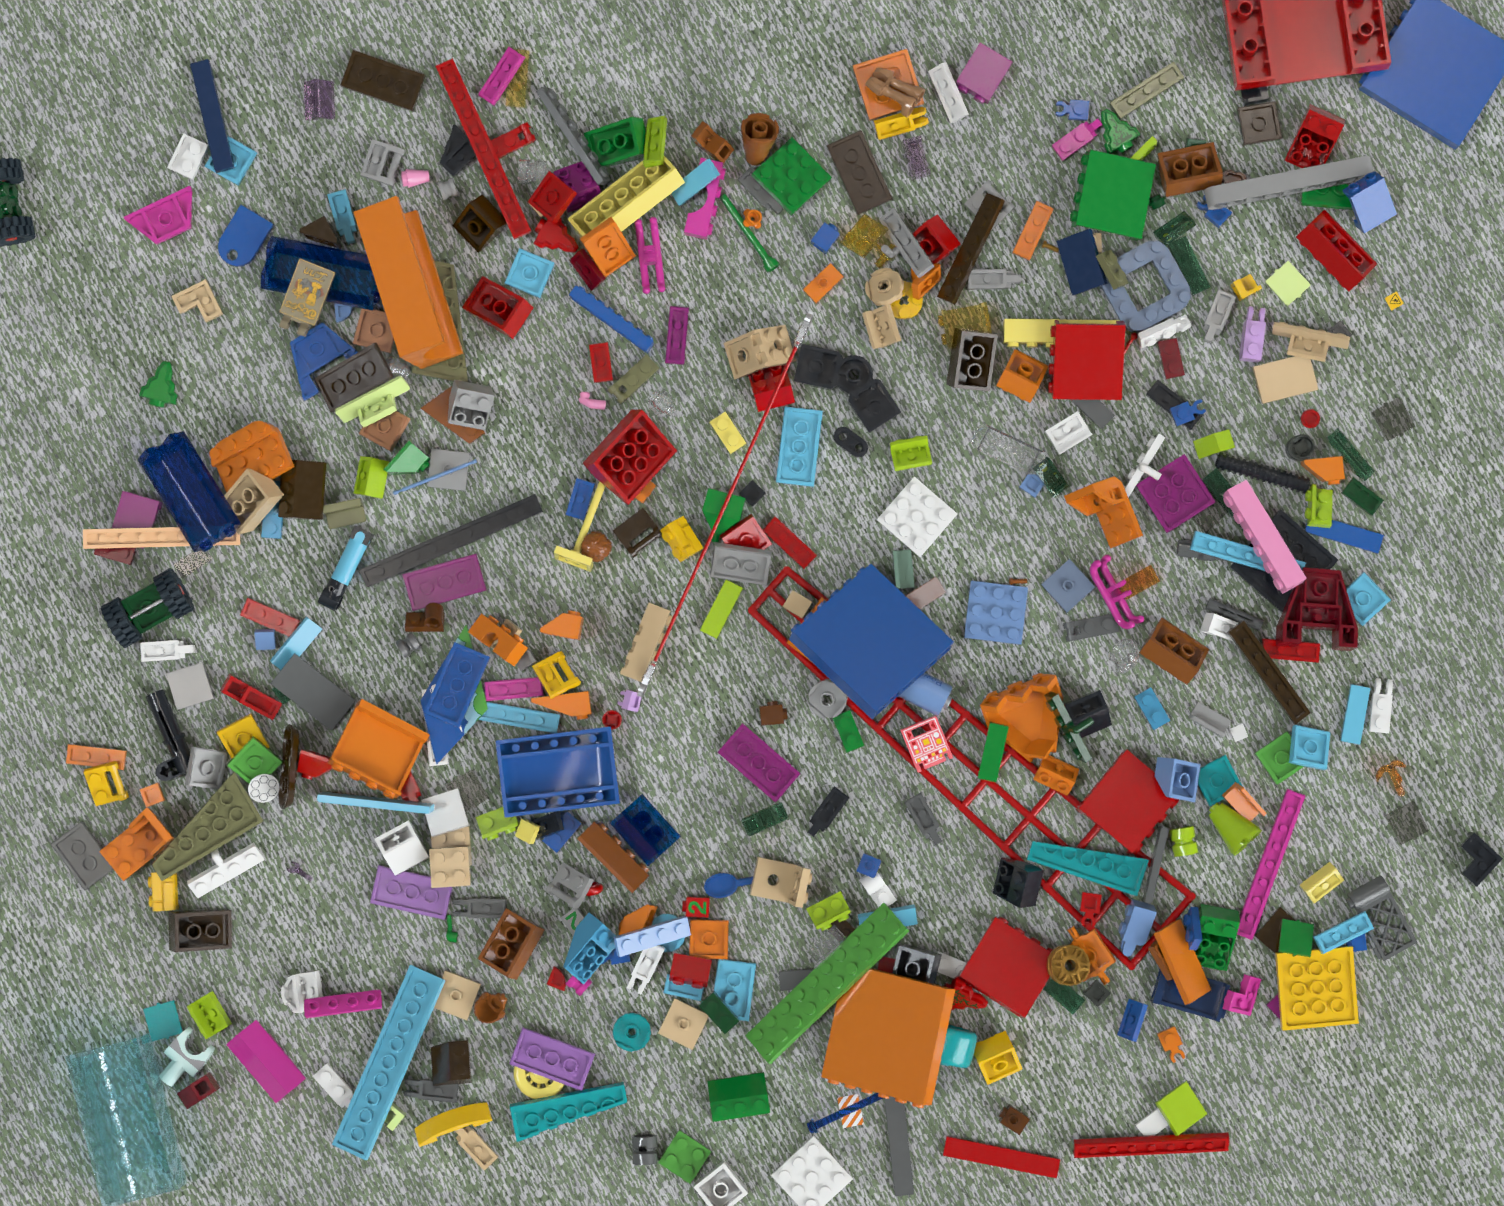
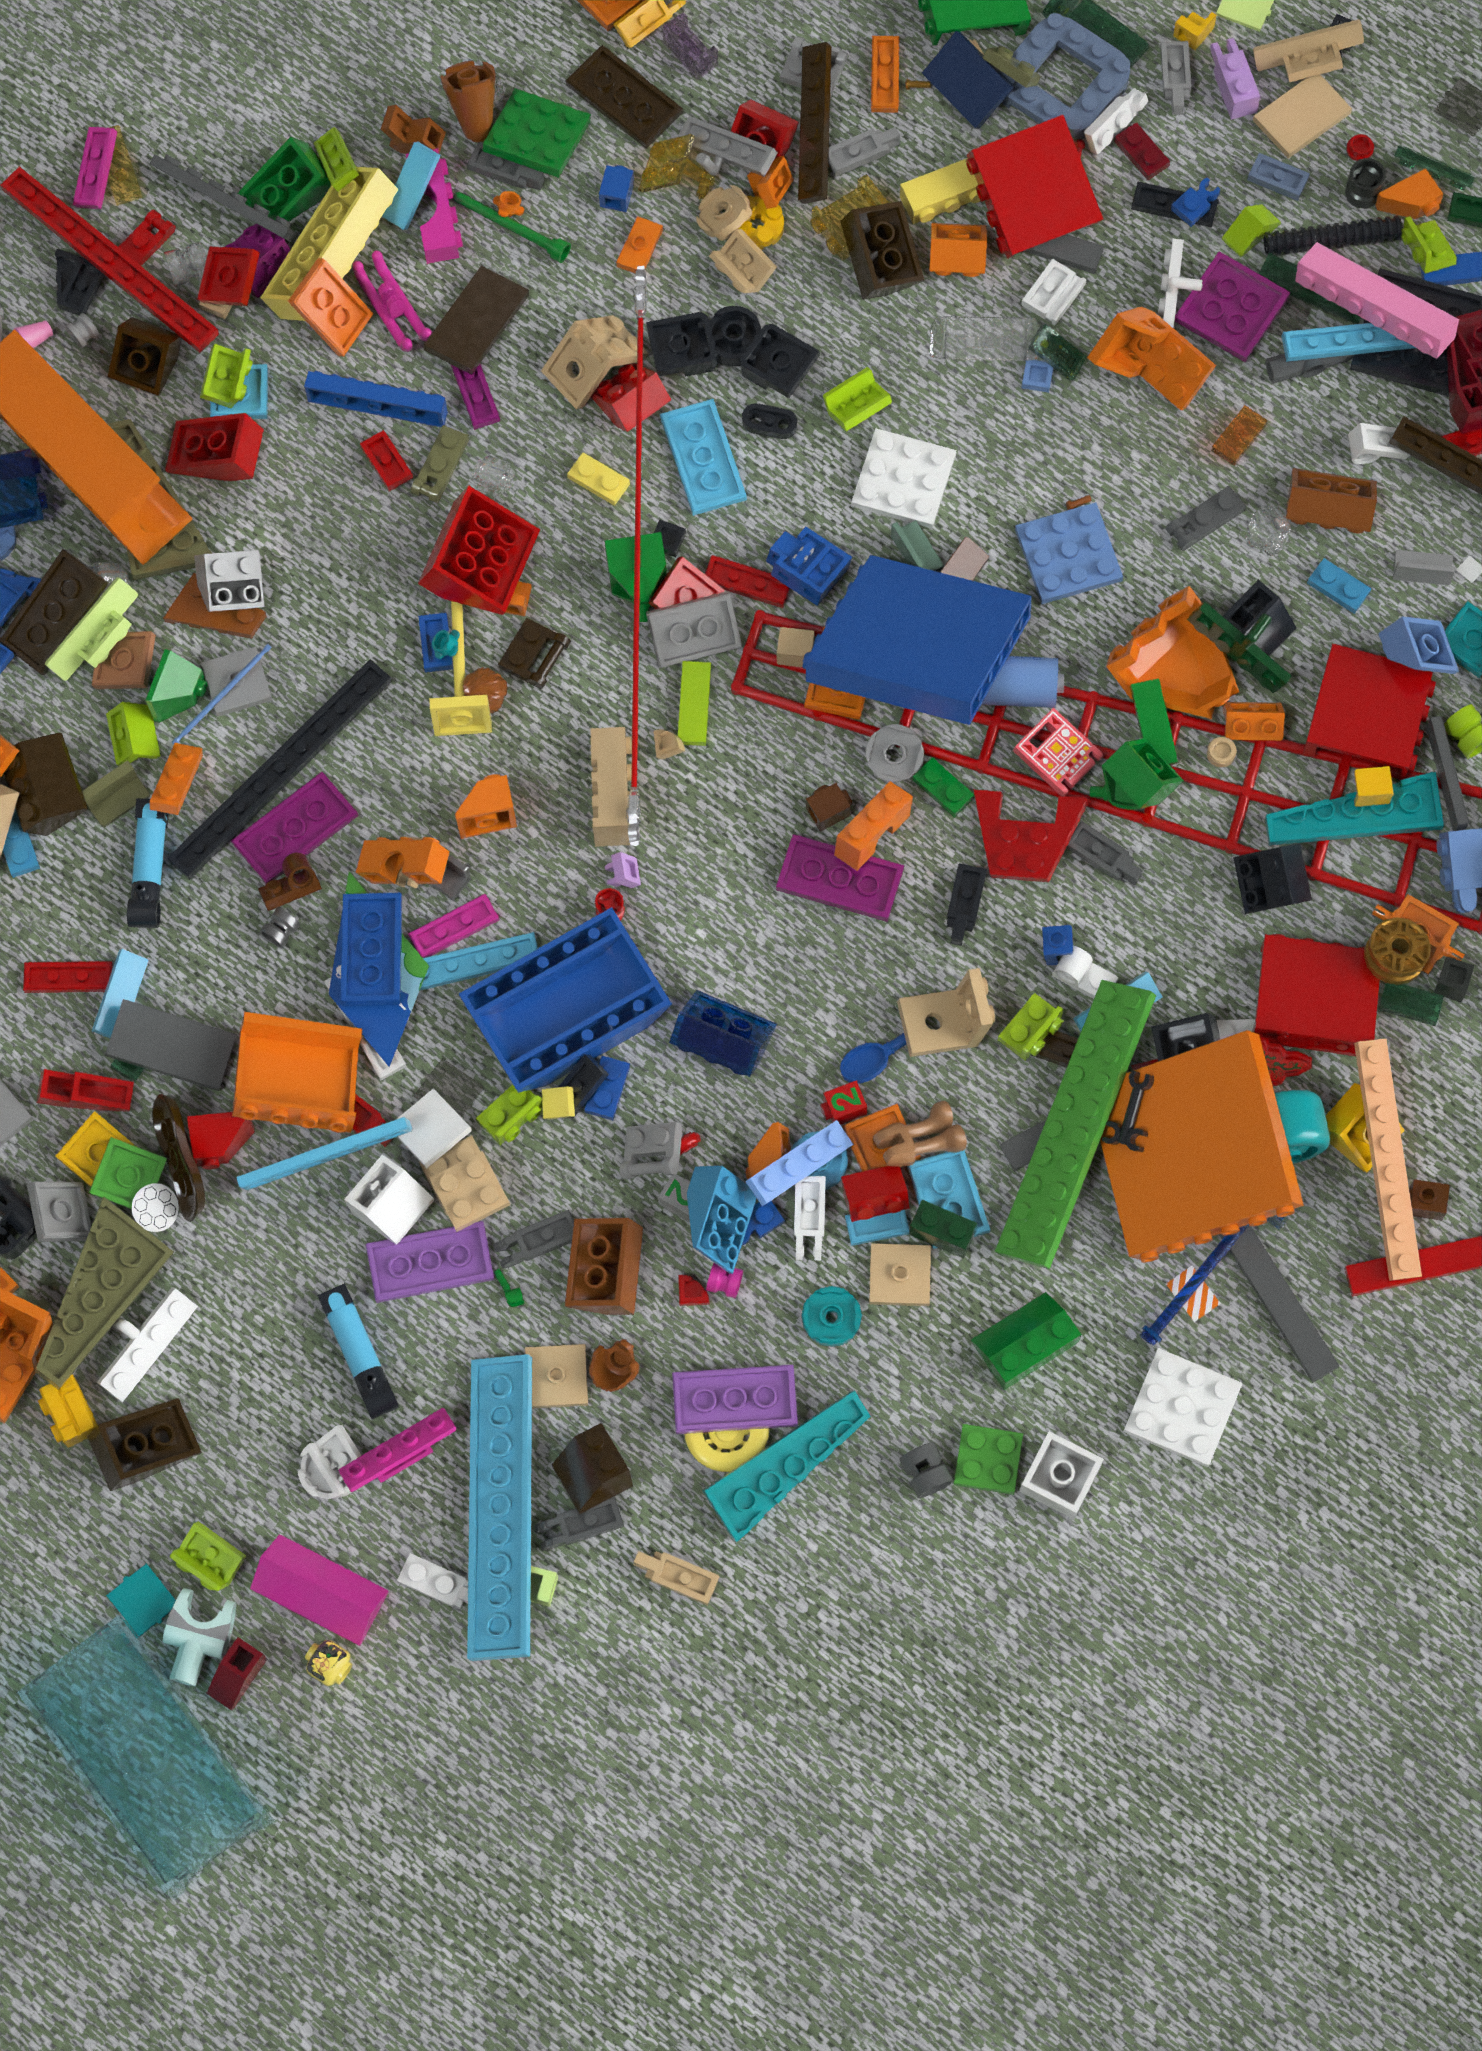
camera: 25 degrees left, 15 degrees down
(253, 1107) = (328, 1662): none -> light yellow head
(265, 639) = (73, 1006): medium blue tile -> none
(299, 871) = (254, 1302): clear purple hand -> none
(346, 931) = (358, 1351): none -> piece
(374, 328) = (58, 533): nougat plate -> none
(384, 522) = (176, 778): none -> orange plate
(452, 1120) = (626, 1553): yellow slope -> none
(524, 263) = (226, 376): none -> lime bracket
(550, 677) = (501, 885): yellow plate -> none
(554, 236) = (252, 330): red rock -> none
(571, 704) = (537, 912): orange slope -> none
(584, 507) = (445, 643): none -> teal plate
(587, 269) = (314, 352): dark red plate -> none
(591, 403) = (399, 515): bright pink arm -> none
(613, 856) = (695, 1085): dark orange slope -> none
(681, 539) = (598, 632): yellow brick -> none
(693, 629) = (667, 744): none -> tan tile
(697, 291) = (476, 320): none -> dark brown tile
(748, 942) = (940, 1121): none -> medium nougat piece
(764, 819) = (883, 945): clear green animal -> none
(792, 741) = (884, 812): none -> orange arch
(826, 945) = (1049, 1076): clear panel -> none
(830, 551) = (808, 564): none -> blue piece
(851, 1004) = (1126, 1133): none -> black bar
(877, 793) = (1022, 847): none -> red wing
(965, 785) = (1136, 777): none -> green piece
(1000, 1089) = (1387, 1159): none -> light nougat plate
(1026, 786) = (1221, 752): none -> tan tile
(1068, 585) = (1148, 480): sand blue plate -> none
(1090, 904) = (1387, 866): red plate -> none
(1104, 855) = (1373, 786): none -> yellow panel
(1113, 594) = (1210, 463): dark pink piece -> none
(1214, 606) = (1389, 420): dark grey pin -> none
(1248, 416) = (1278, 176): none -> sand blue plate

